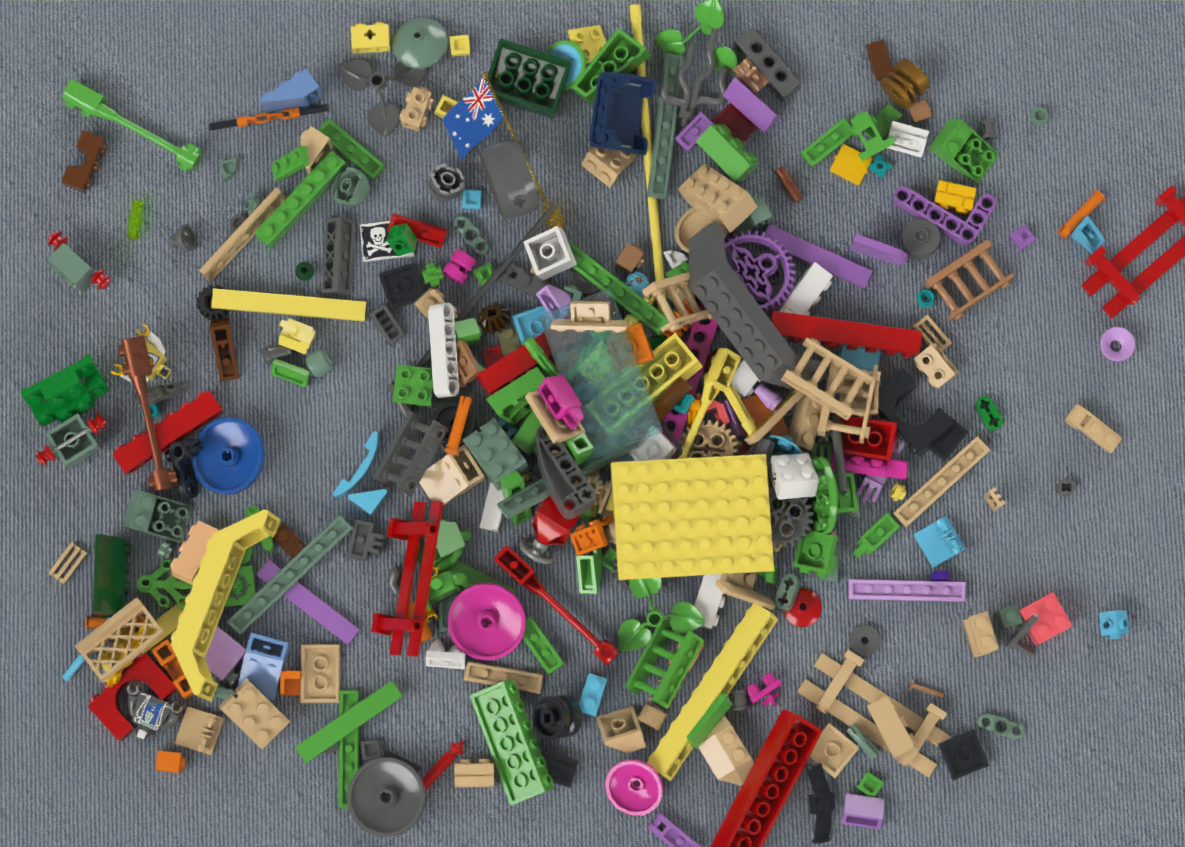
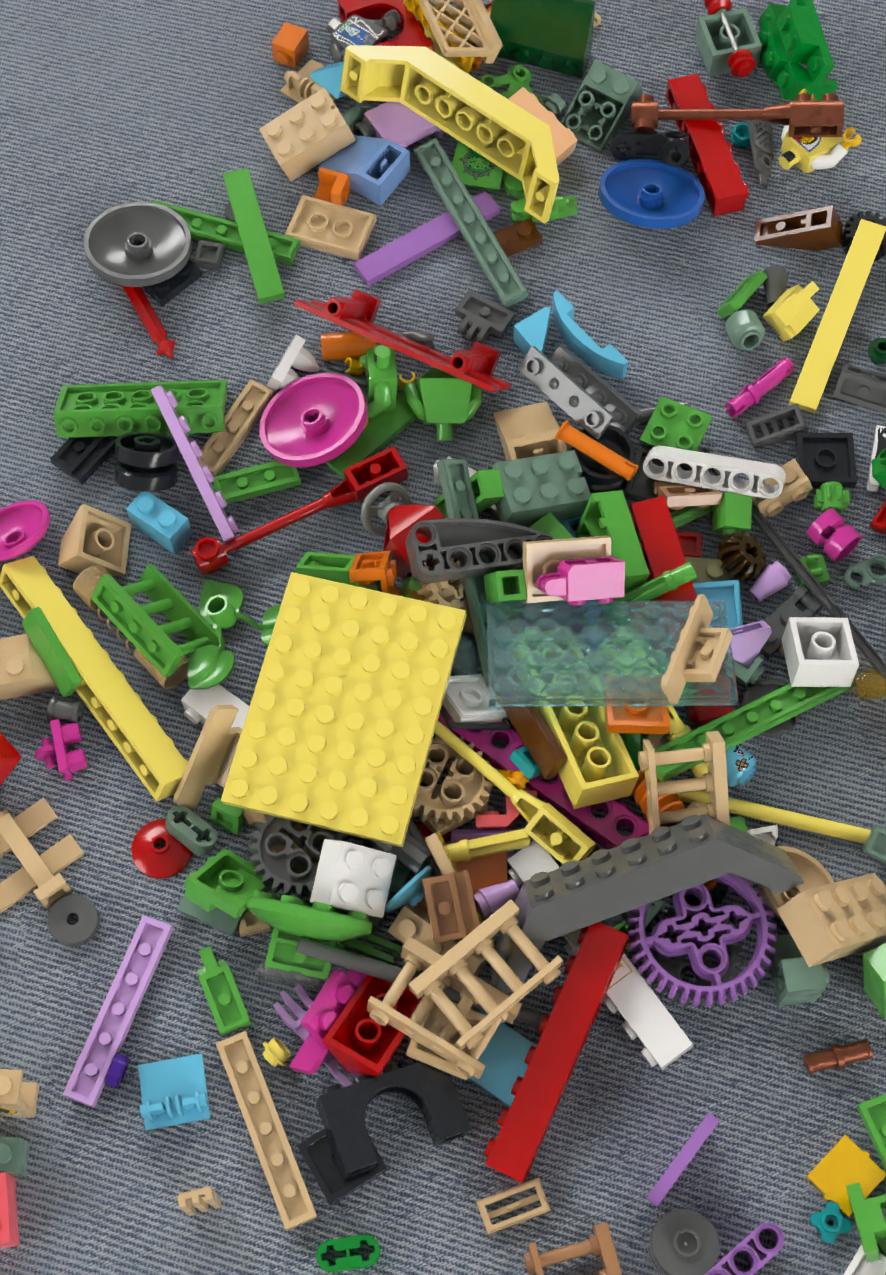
camera: 110 degrees right, 15 degrees down
(196, 711) = (330, 78): none -> medium azure slope
(367, 346) = (752, 393): none -> dark pink pin
(474, 774) = (121, 354): tan brick -> none
(503, 297) = (769, 582): none -> lavender cone
(544, 687) = (191, 452): none -> lavender plate
(630, 258) = (779, 772): medium nougat brick -> none
(790, 415) = (450, 906): none -> medium nougat plate
(829, 261) = (701, 1063): medium lavender tile -> none
(925, 293) = (580, 1208): teal plate -> none
(935, 365) = (457, 1189): tan brick -> none

